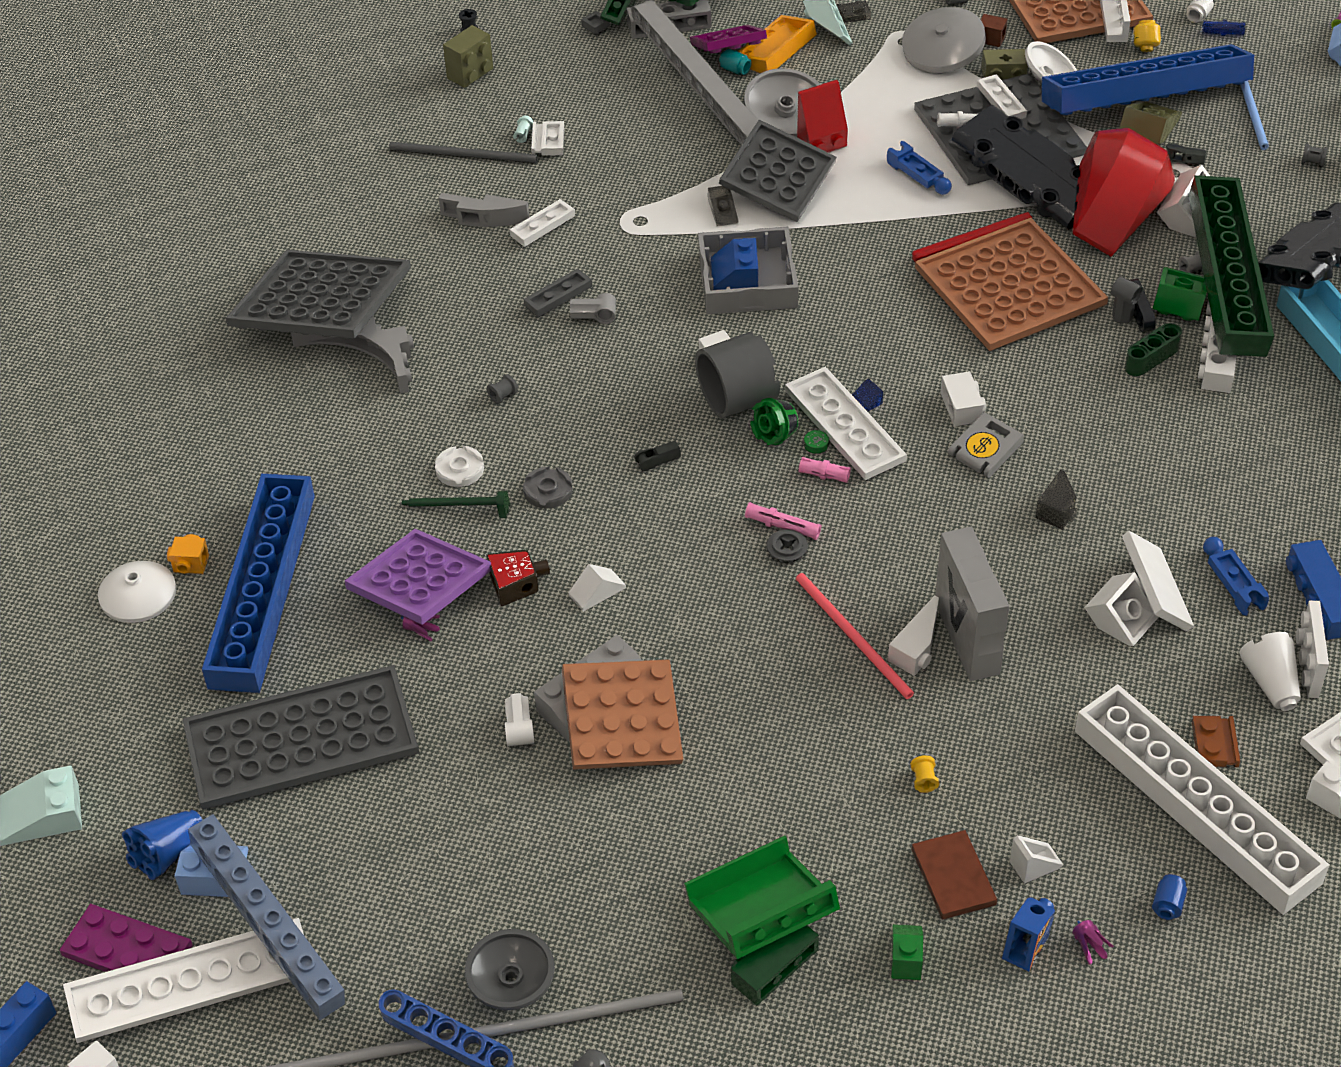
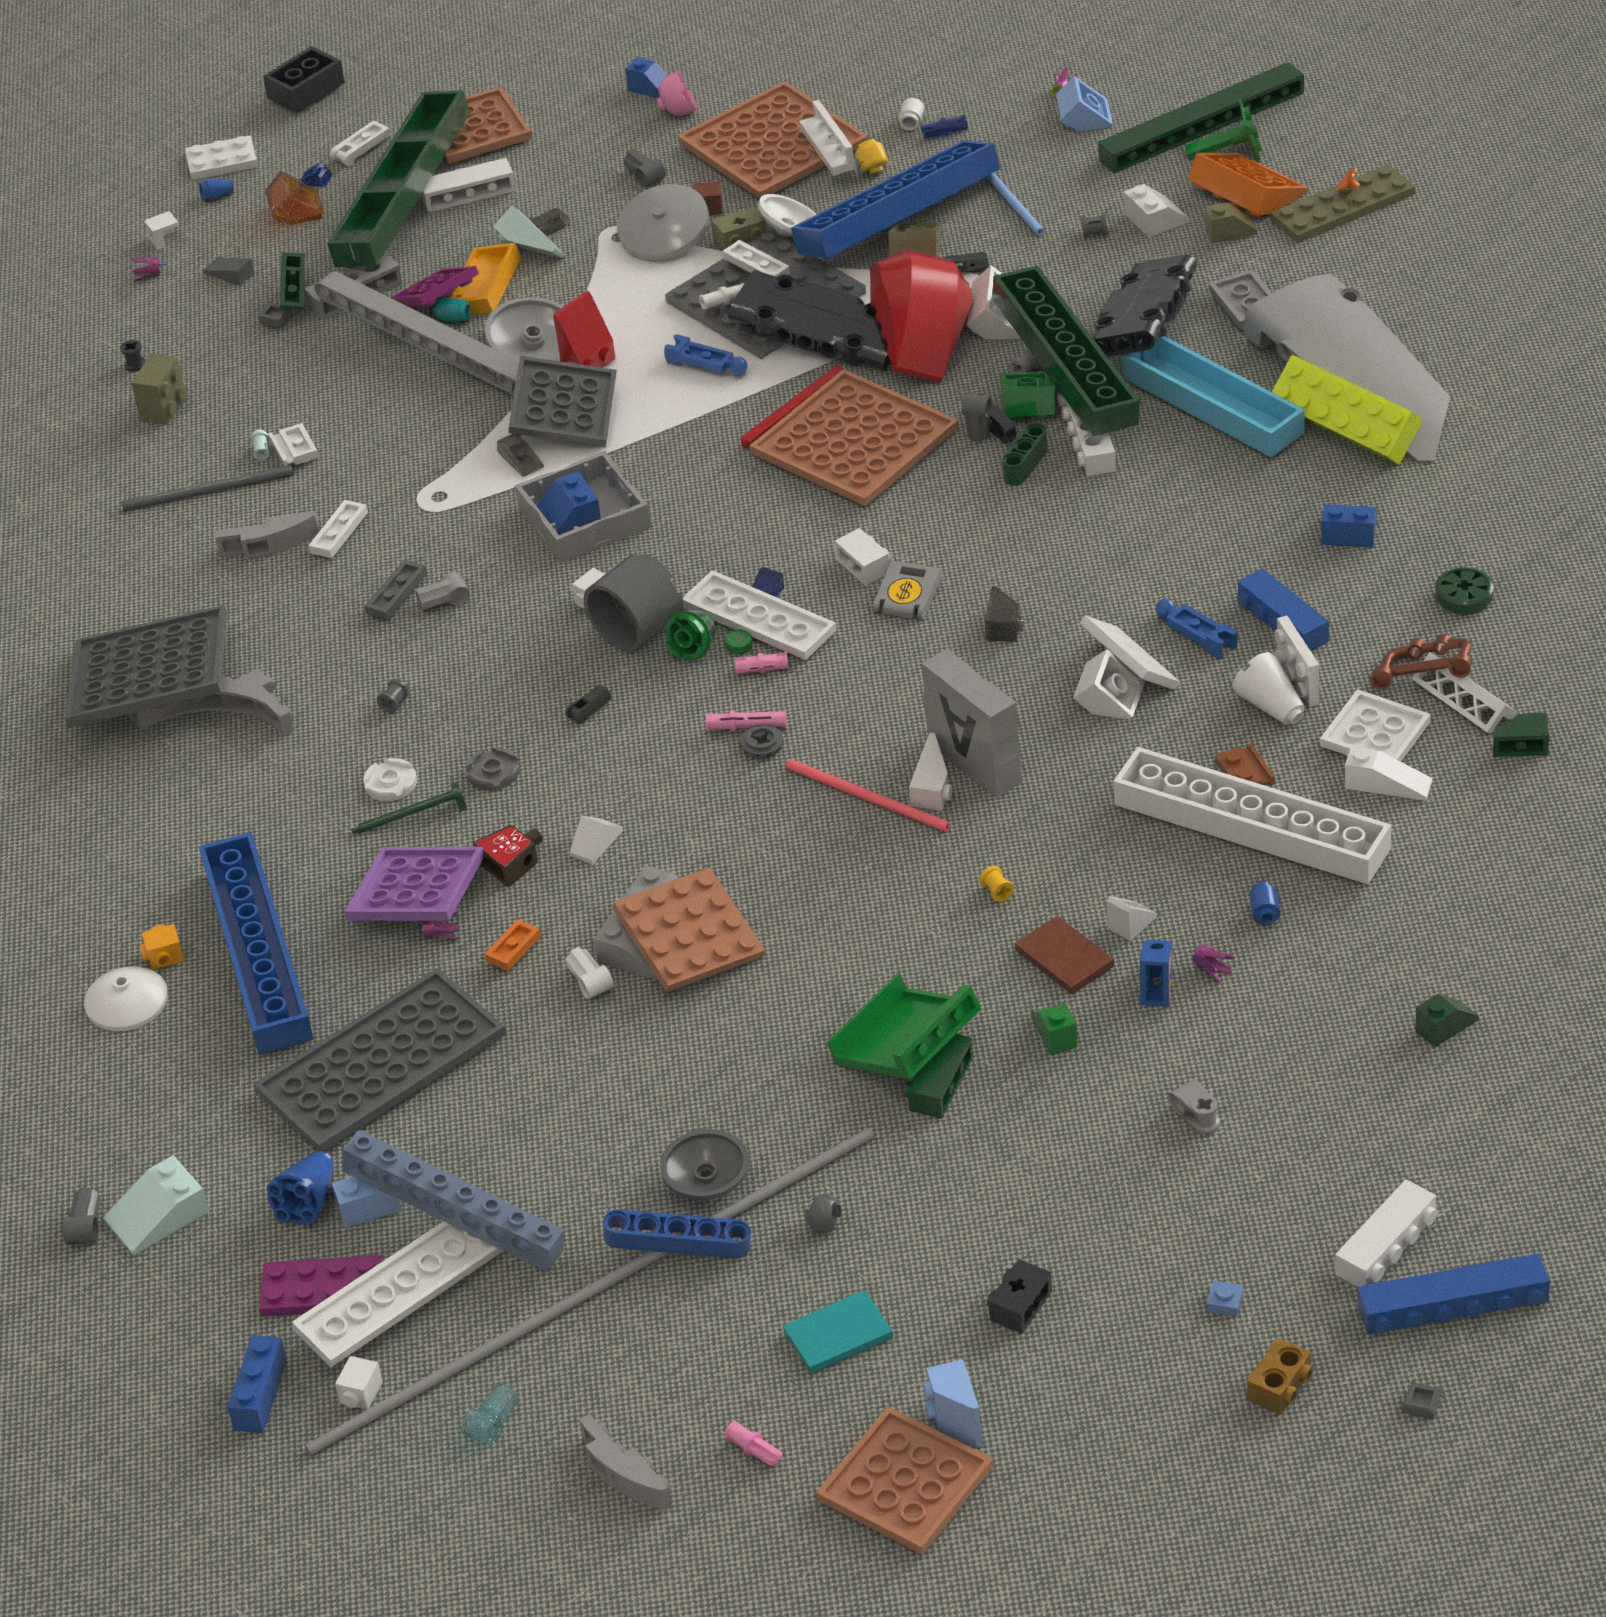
camera: 20 degrees left, 5 degrees down
(470, 666) = (512, 945): none -> orange plate

